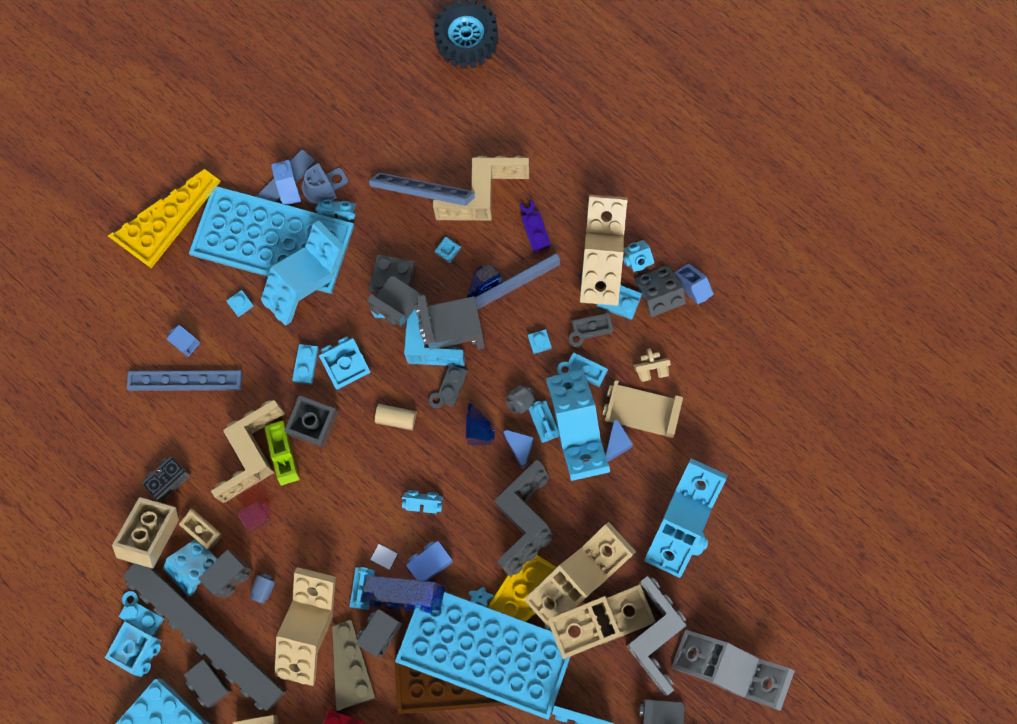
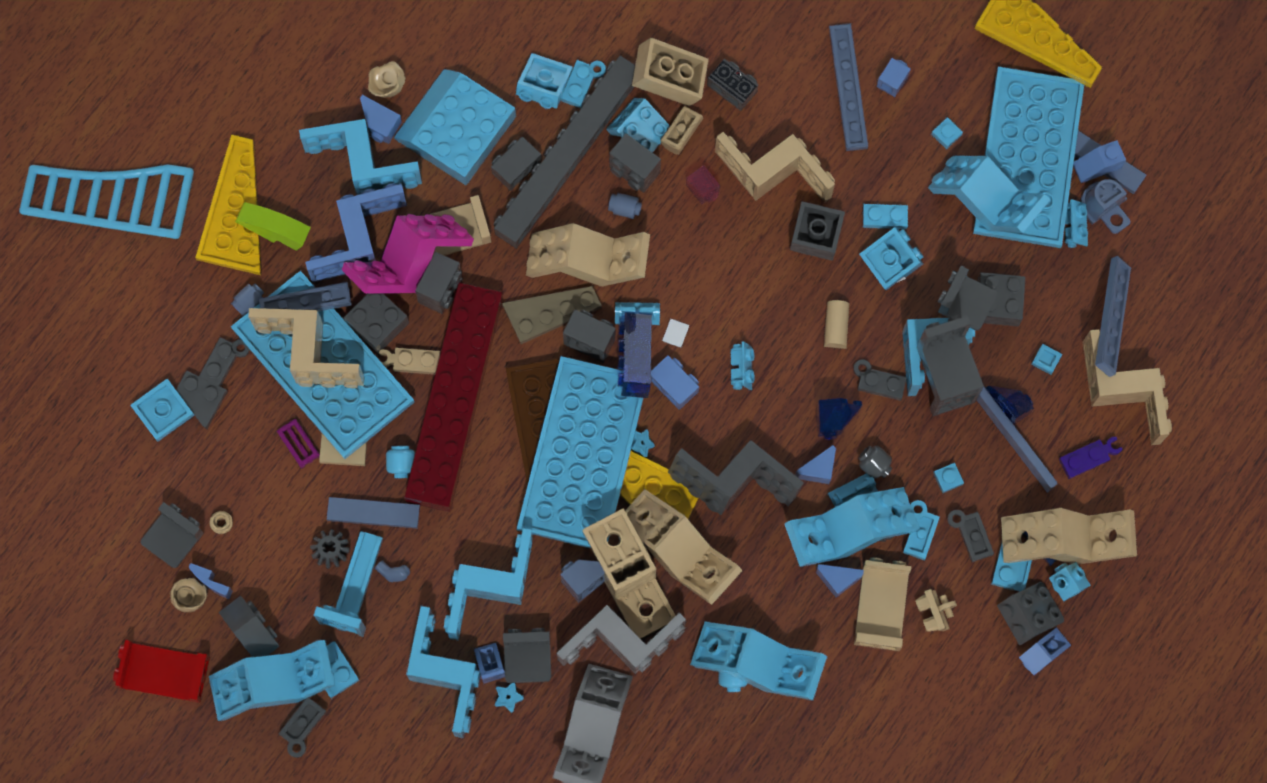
camera: 75 degrees right, 0 degrees up
(281, 453) = (777, 204): lime slope -> none
(598, 664) = (582, 578): none -> sand blue slope

